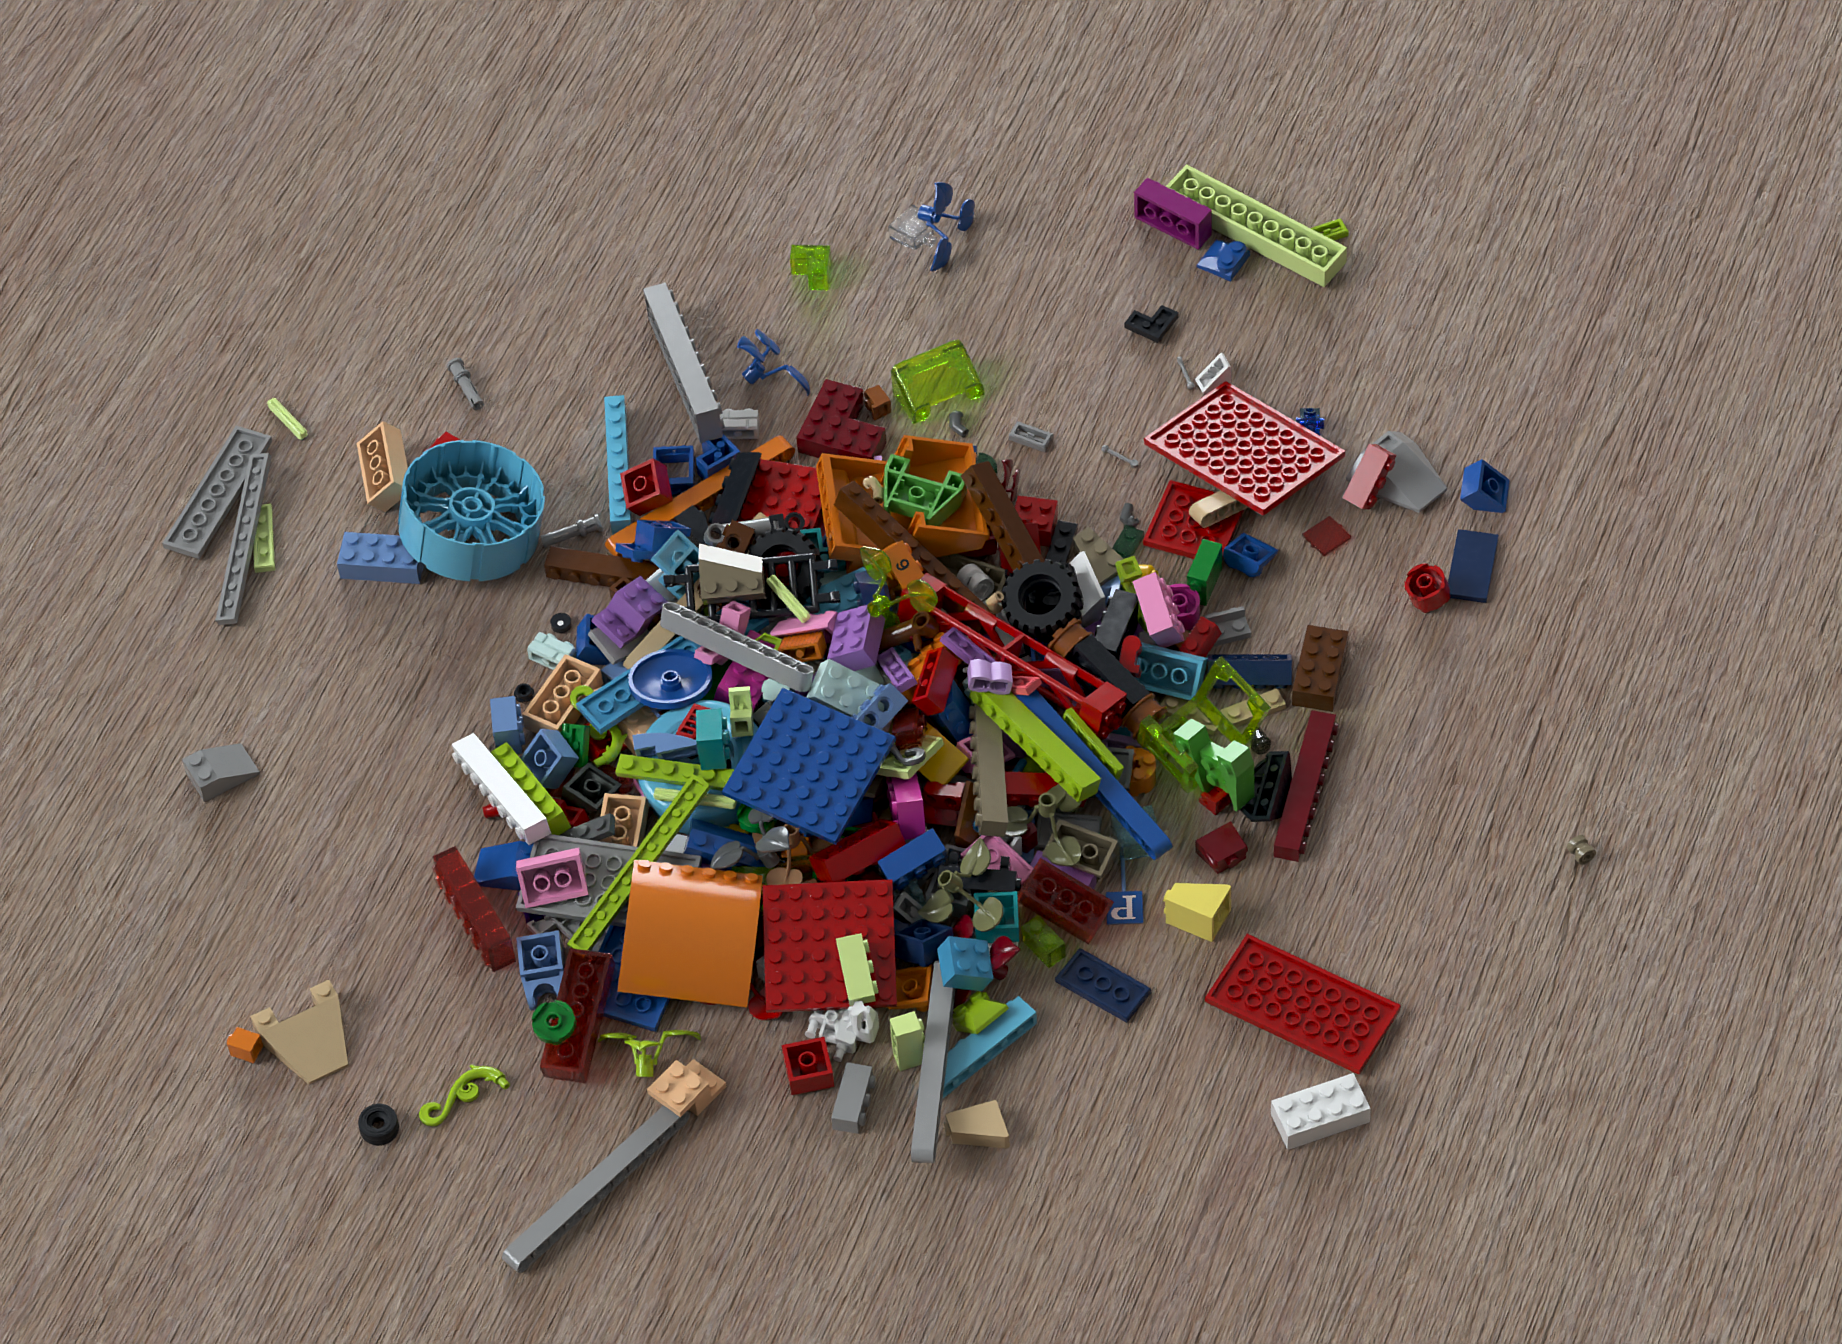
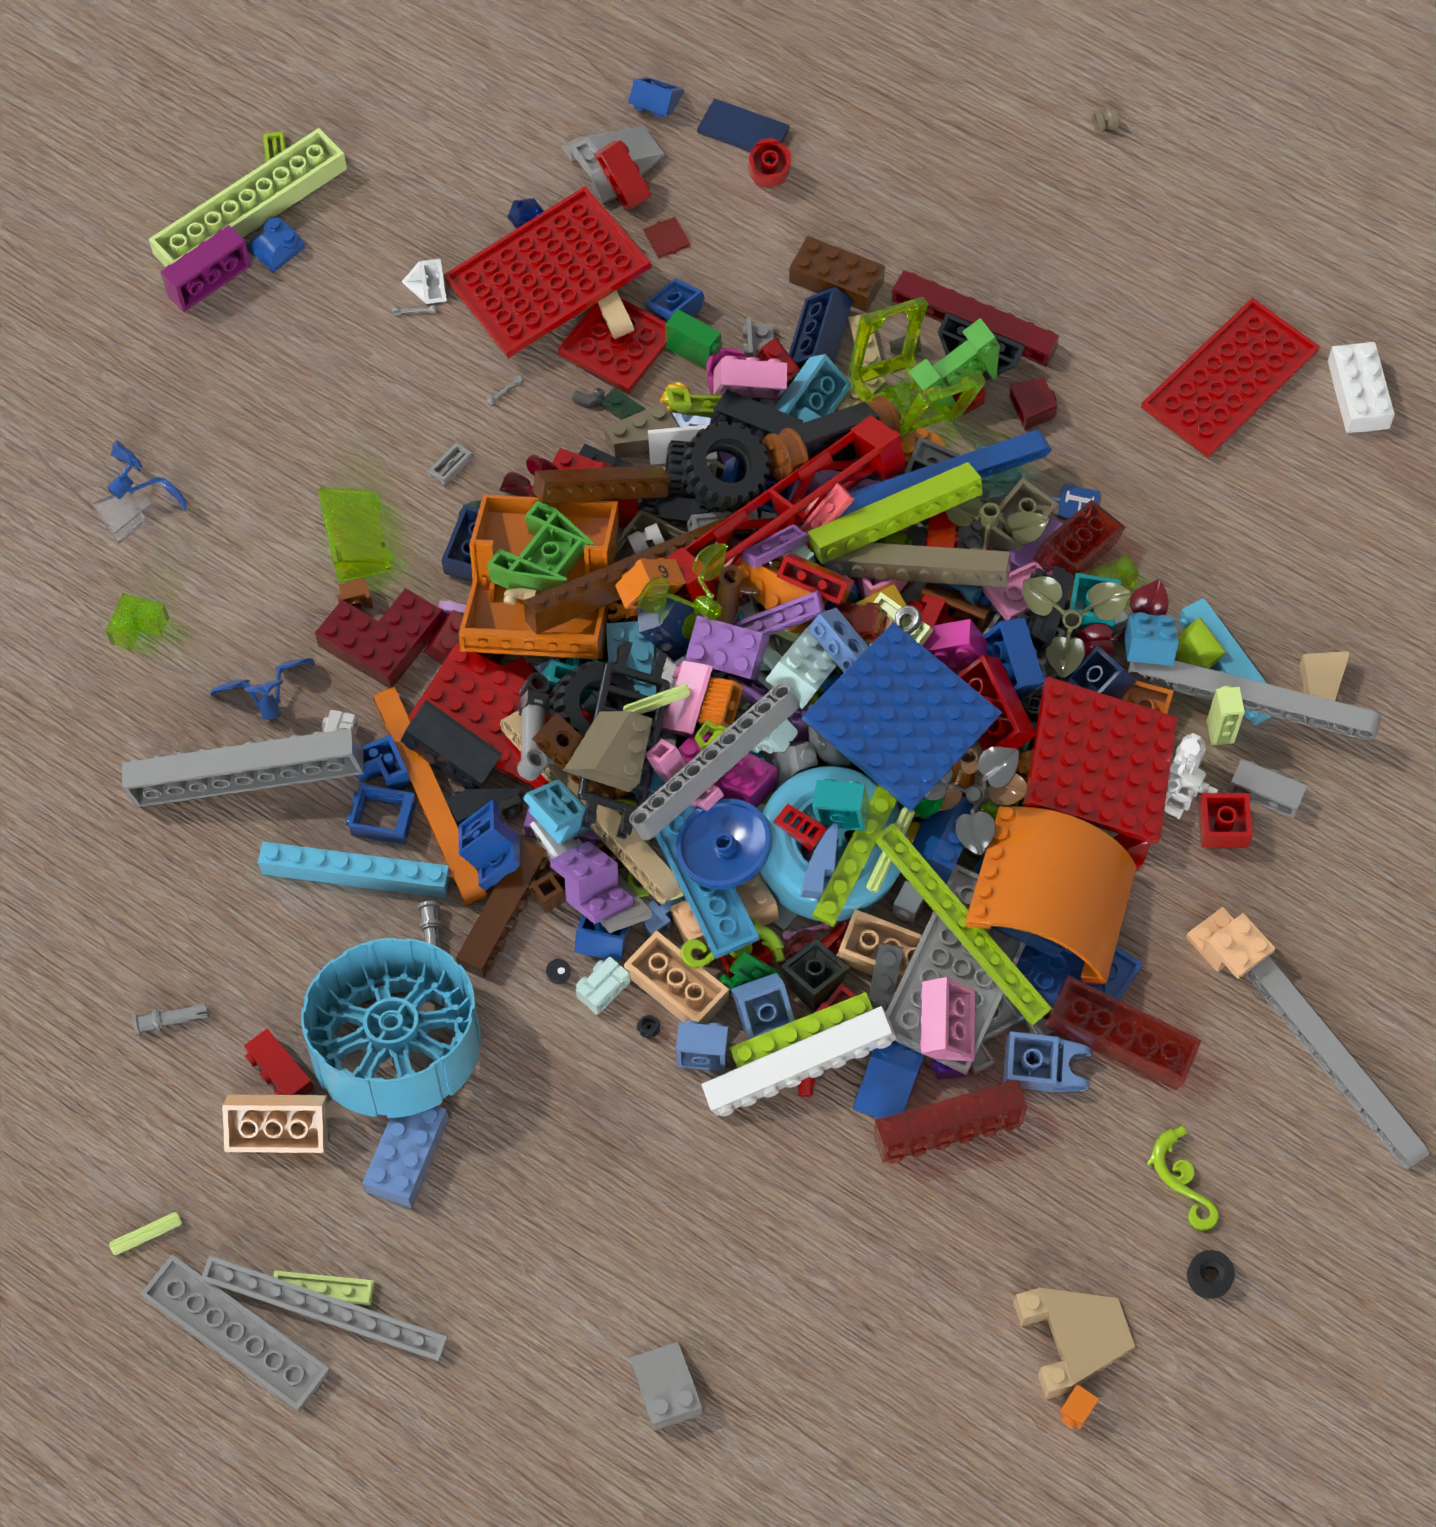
camera: 80 degrees left, 10 degrees up
(553, 1010) = (1136, 1065): green plate -> none
(645, 1063) = (1188, 978): lime plant -> none
(646, 487) = (414, 837): red brick -> none
(741, 711) = (805, 772): yellowish green brick -> none
(856, 968) = (1145, 736): yellowish green brick -> none
(955, 423) = (408, 528): dark grey arm -> none
(989, 676) = (822, 527): lavender brick -> none
(993, 602) = (717, 510): tan arm -> none
(1093, 743) = (911, 463): lime tile -> none
(1103, 985) = (1170, 540): dark blue tile -> none
(1129, 655) = (803, 409): red leg -> none
(1152, 327) = (345, 323): black plate -> none
(1198, 908) = (1112, 432): light yellow slope -> none

